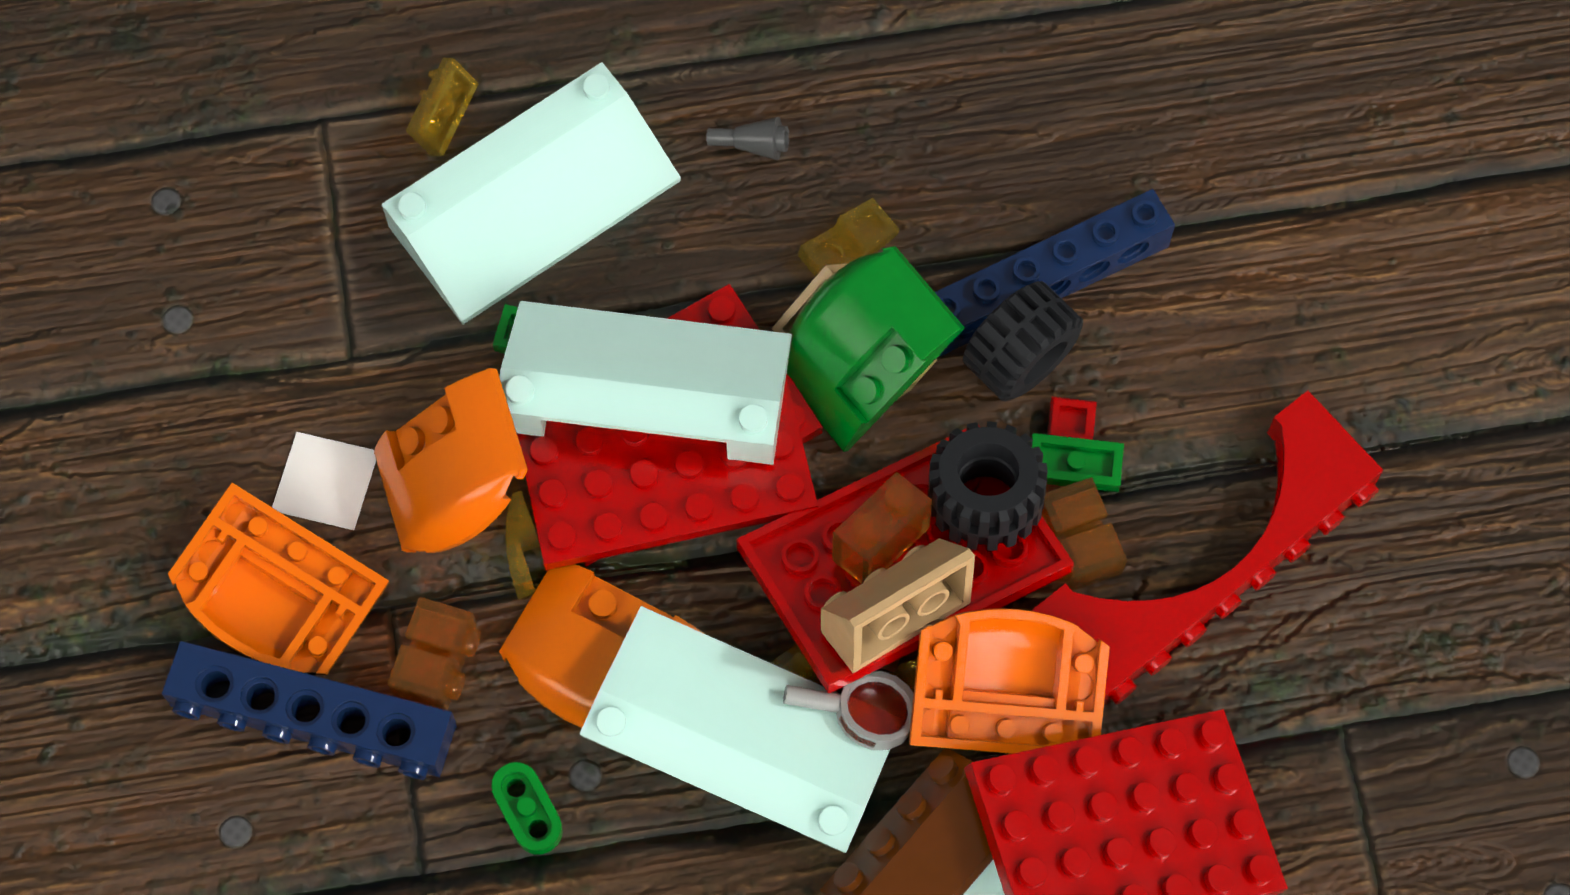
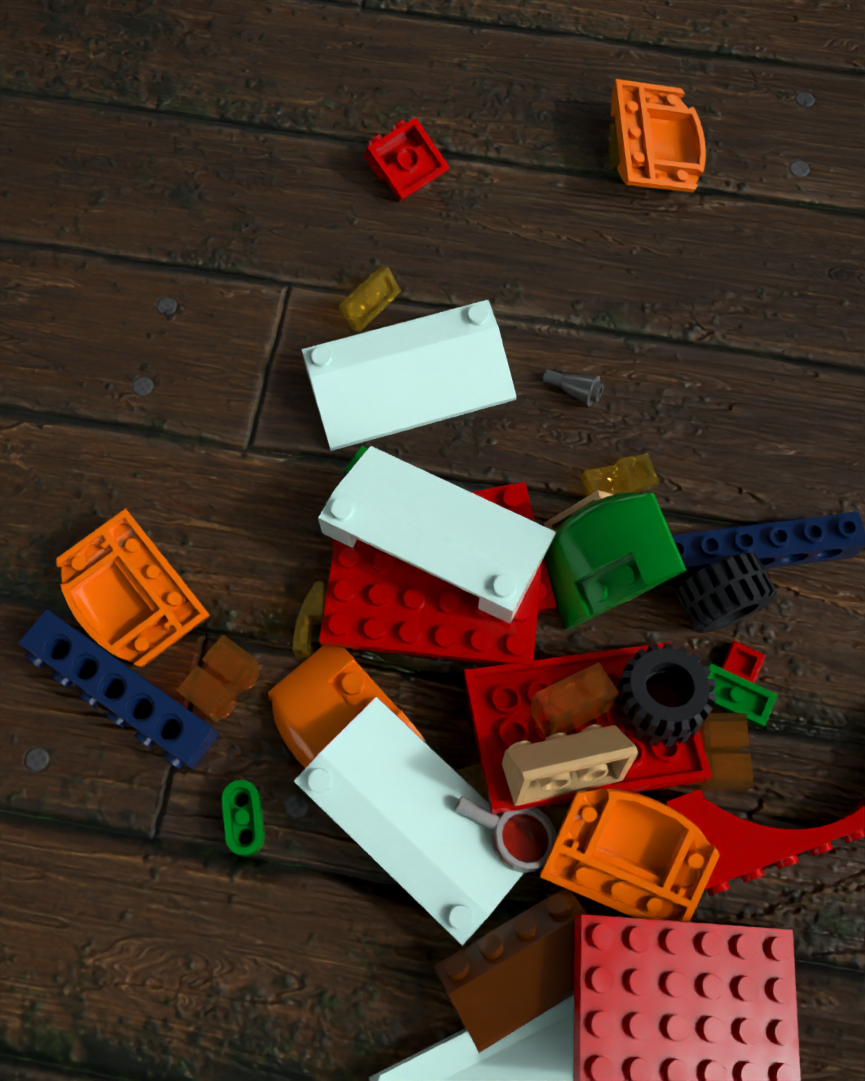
camera: 20 degrees right, 0 degrees up
(325, 481) = (196, 528): white sticker -> none
(451, 465) = (280, 547): orange slope -> none

